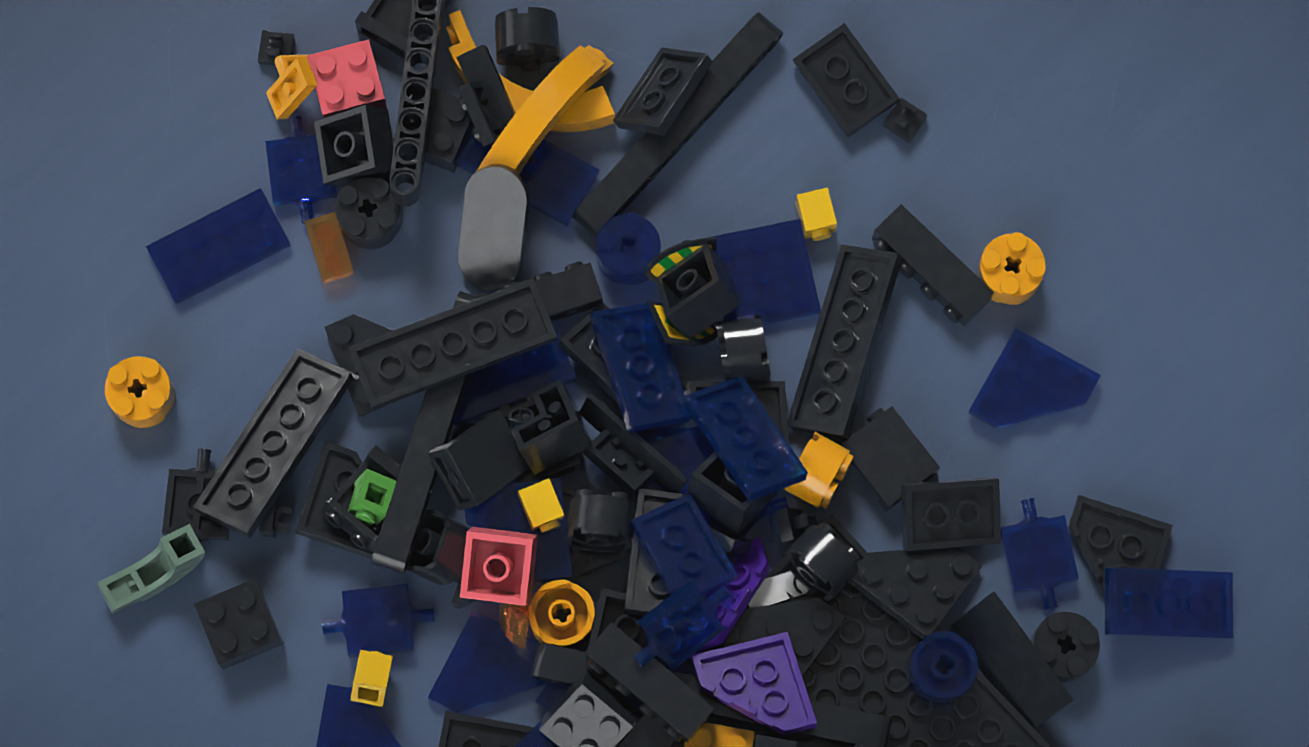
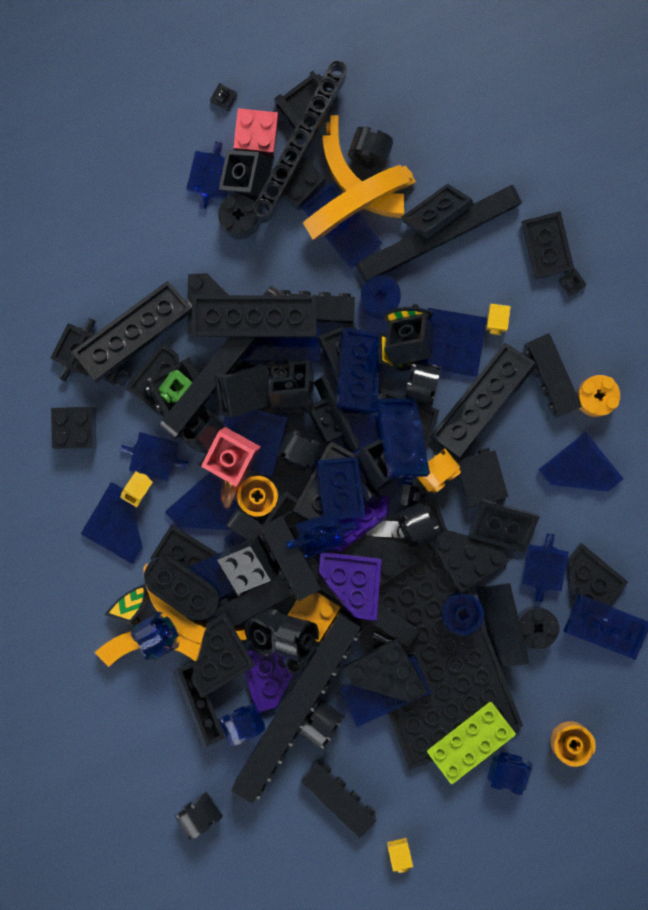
camera: 25 degrees right, 10 degrees up
(156, 399) = (61, 261): light orange brick -> none
(168, 563) = (39, 379): sand green arch -> none
(218, 246) = (145, 202): clear blue plate -> none
(292, 86) = (224, 122): light orange plate -> none
(329, 247) = (208, 228): clear orange plate -> none
(485, 97) = (331, 174): black bracket -> none
(493, 227) = (306, 254): tile -> none
(541, 506) = (269, 431): yellow brick -> none

